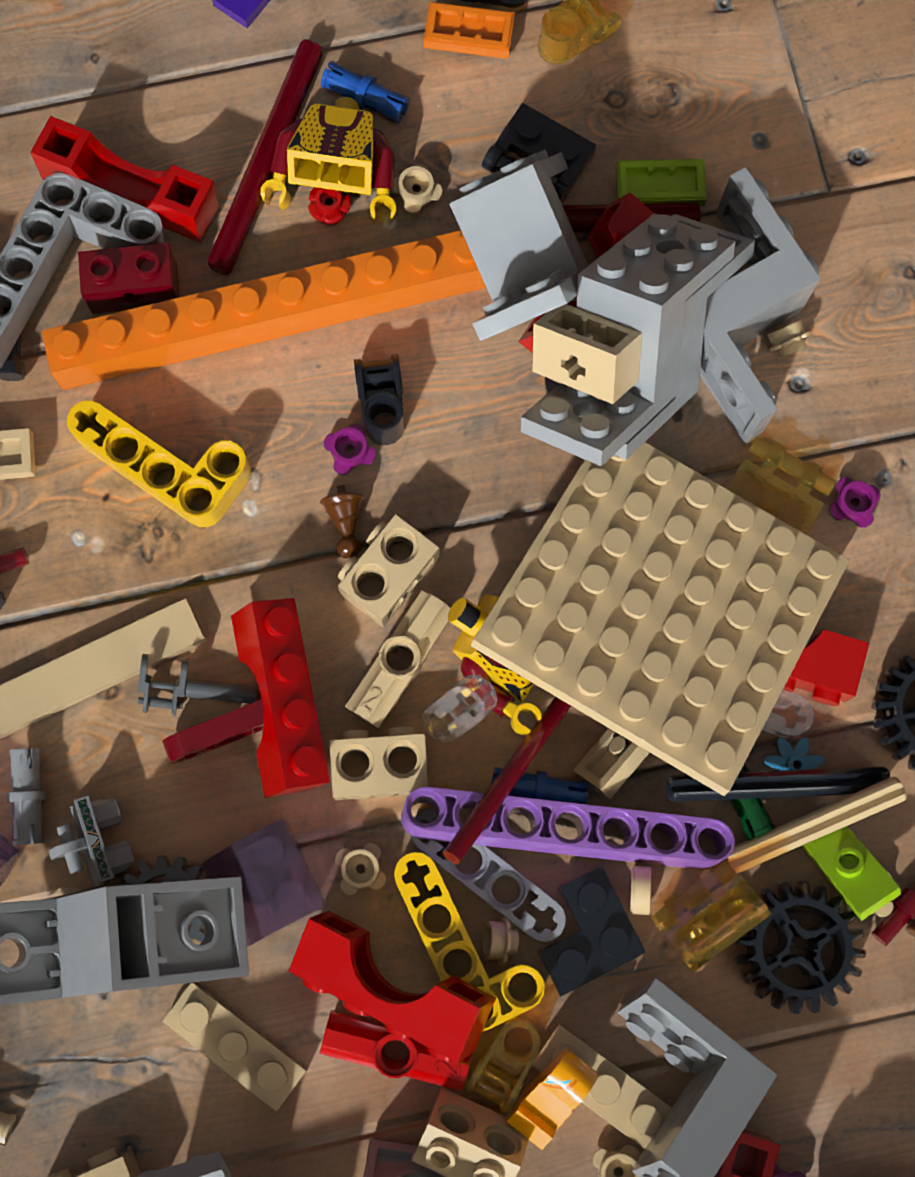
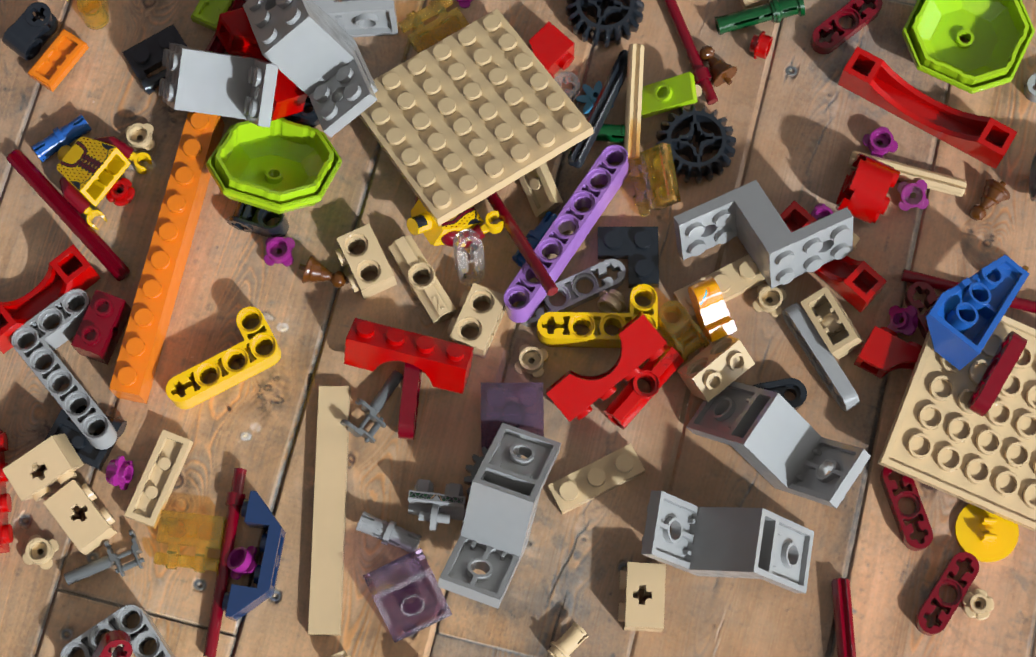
camera: 60 degrees left, 5 degrees down
(490, 383) = (274, 166): none -> lime rock
(587, 352) = (308, 76): tan brick -> none
(640, 890) = (622, 211): tan tile -> none

